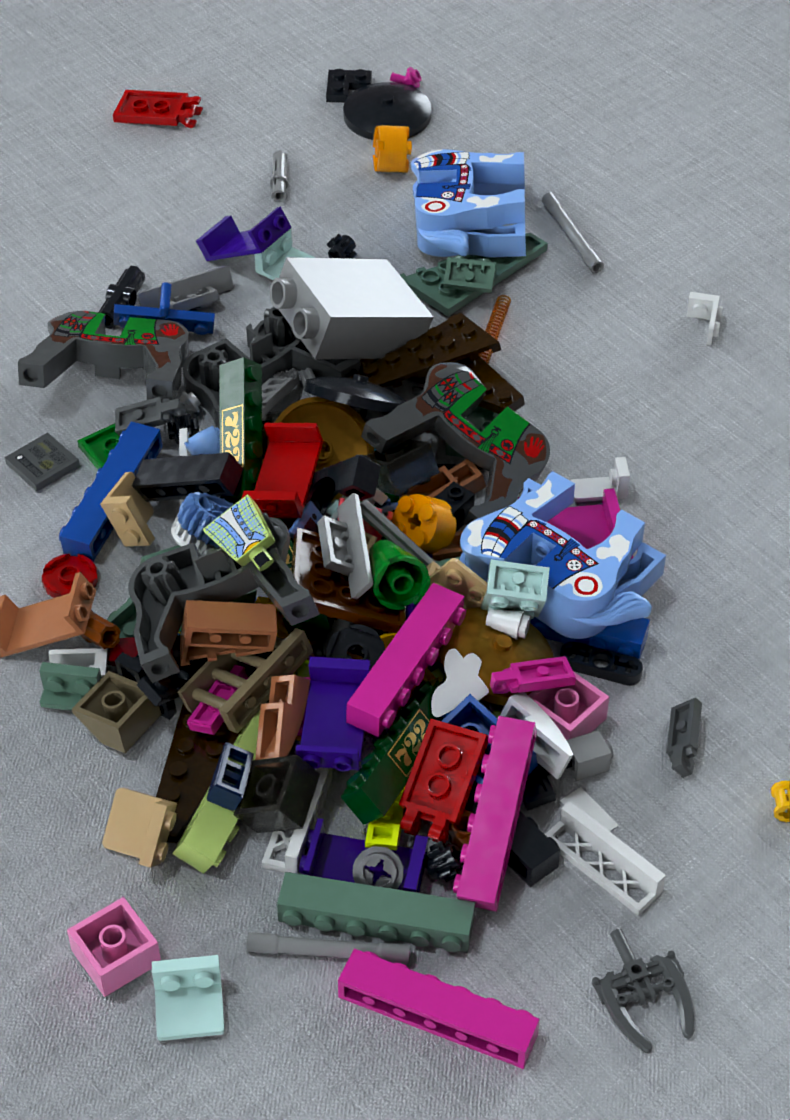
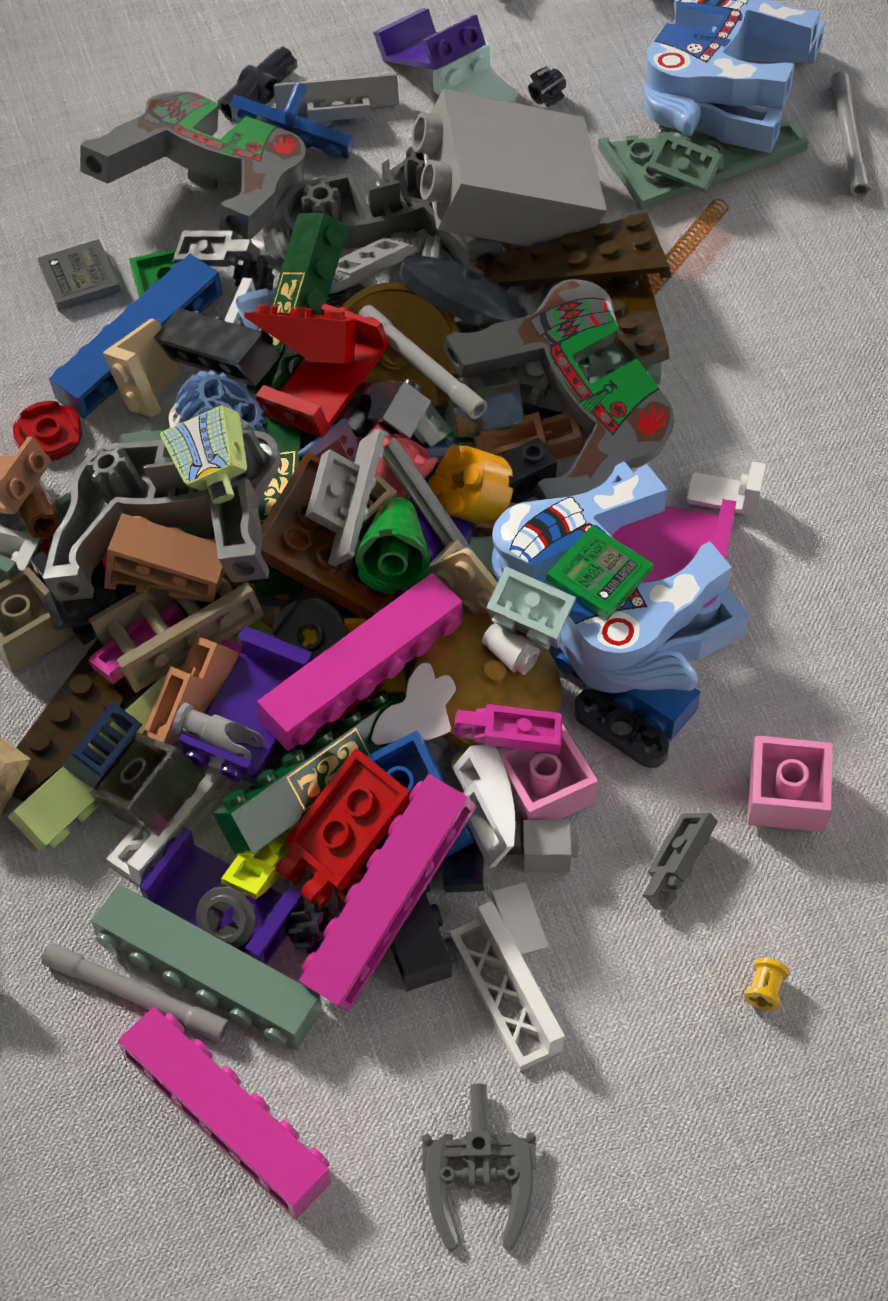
camera: 20 degrees right, 10 degrees up
(269, 446) = (313, 336): none -> red slope
(319, 736) = (215, 731): none -> light grey piece
(391, 459) = (458, 392): none -> light grey piece
(556, 547) = (599, 572): none -> green tile
(740, 663) = (790, 783): none -> bright pink brick

